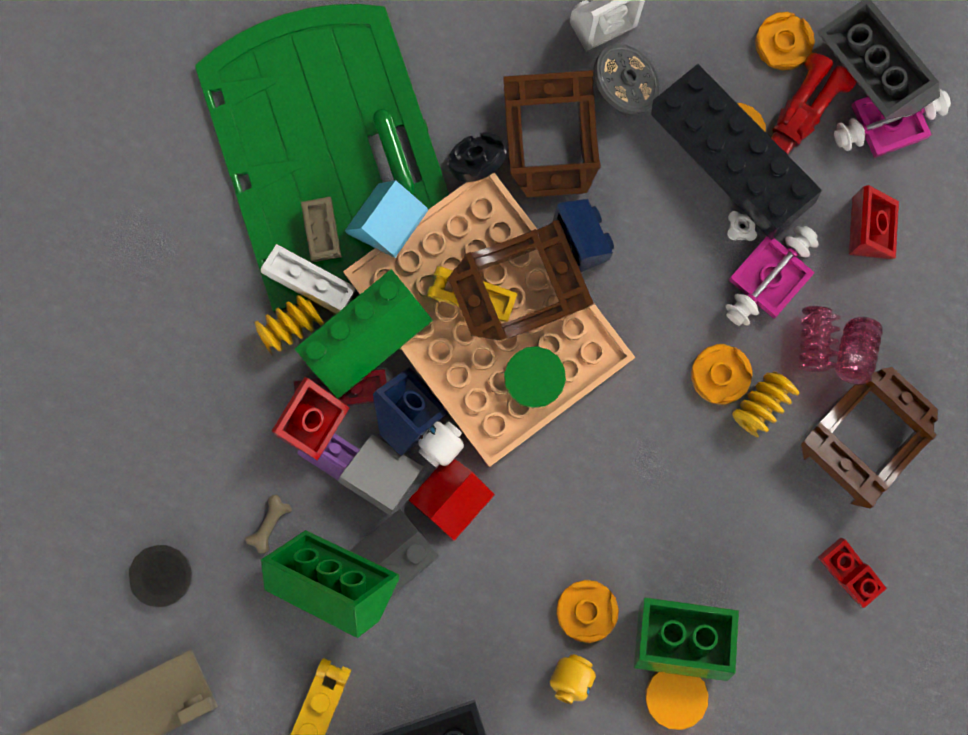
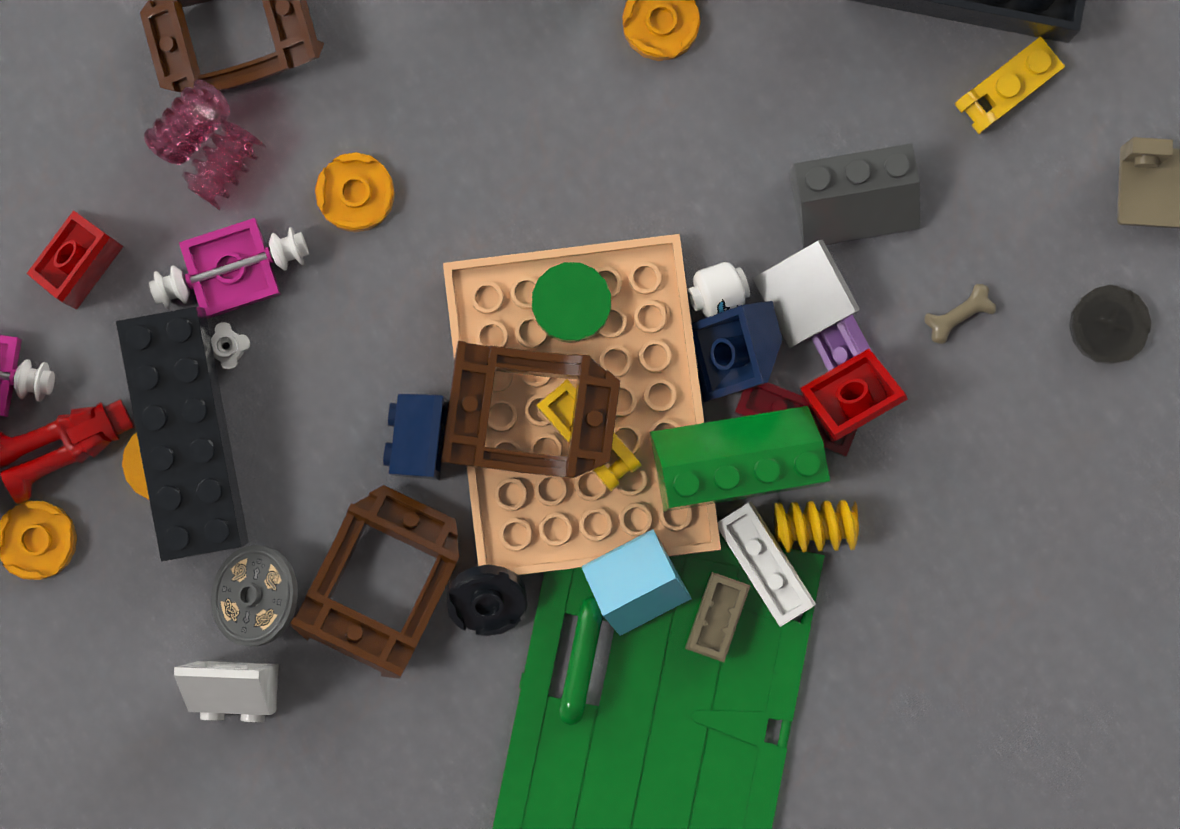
camera: 145 degrees left, 5 degrees up
(329, 582) = (931, 200): green slope -> none
(452, 498) = (741, 226): red slope -> none
(764, 402) = (327, 128): yellow piece -> none

